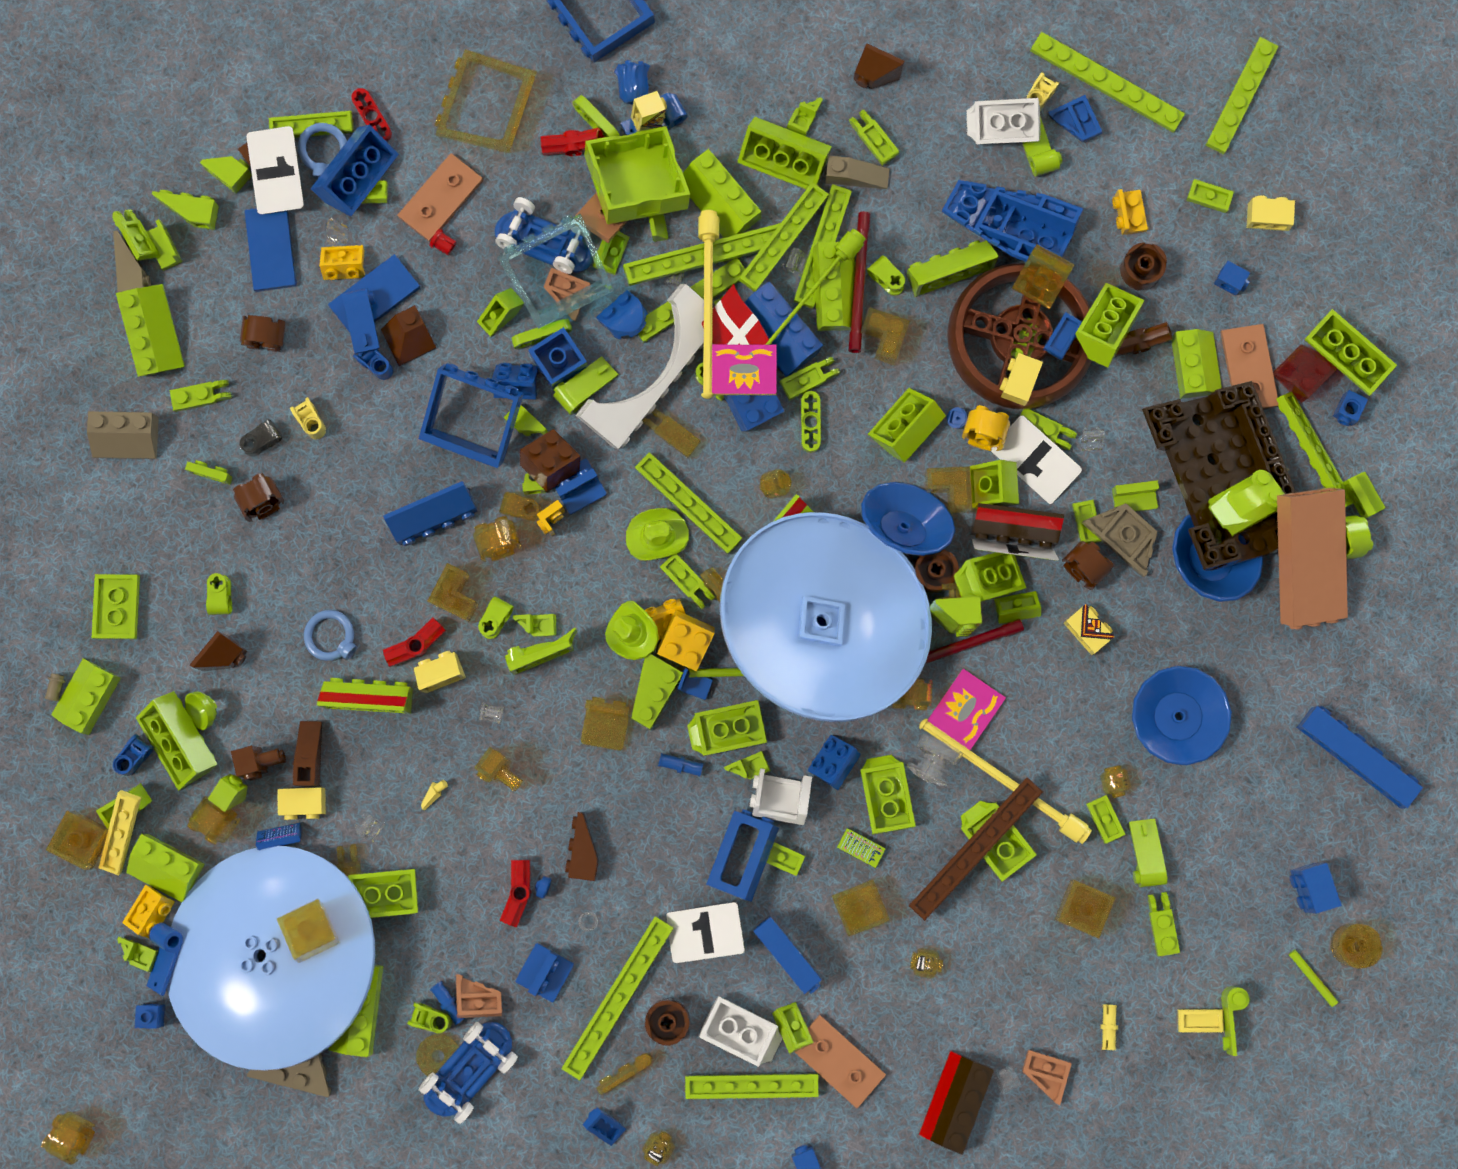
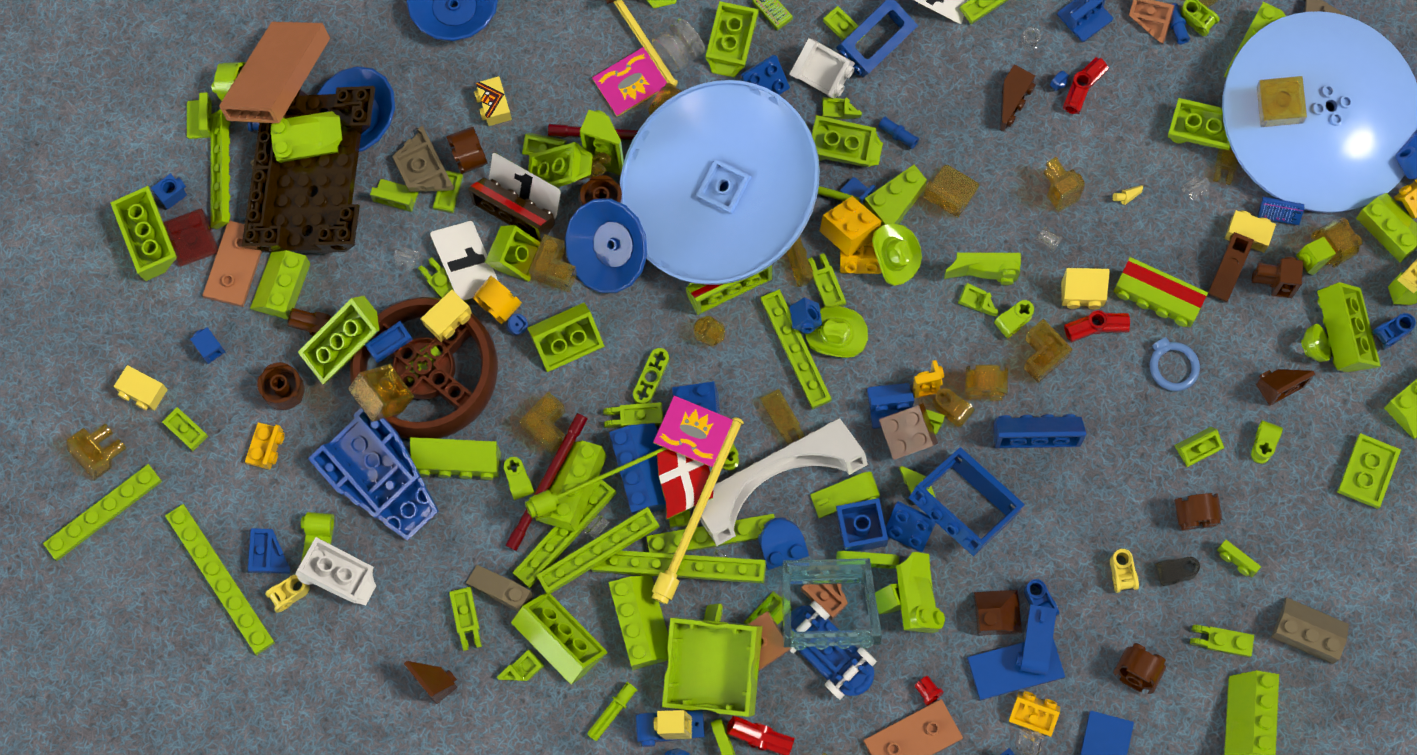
camera: 155 degrees left, 10 degrees down
(280, 568) = (1199, 446): none -> lime slope
(481, 313) = (917, 595): none -> lime slope
(690, 534) = (805, 315): none -> blue brick
(707, 121) = (612, 711): none -> lime axle
(1282, 134) = (90, 454): none -> clear yellow brick

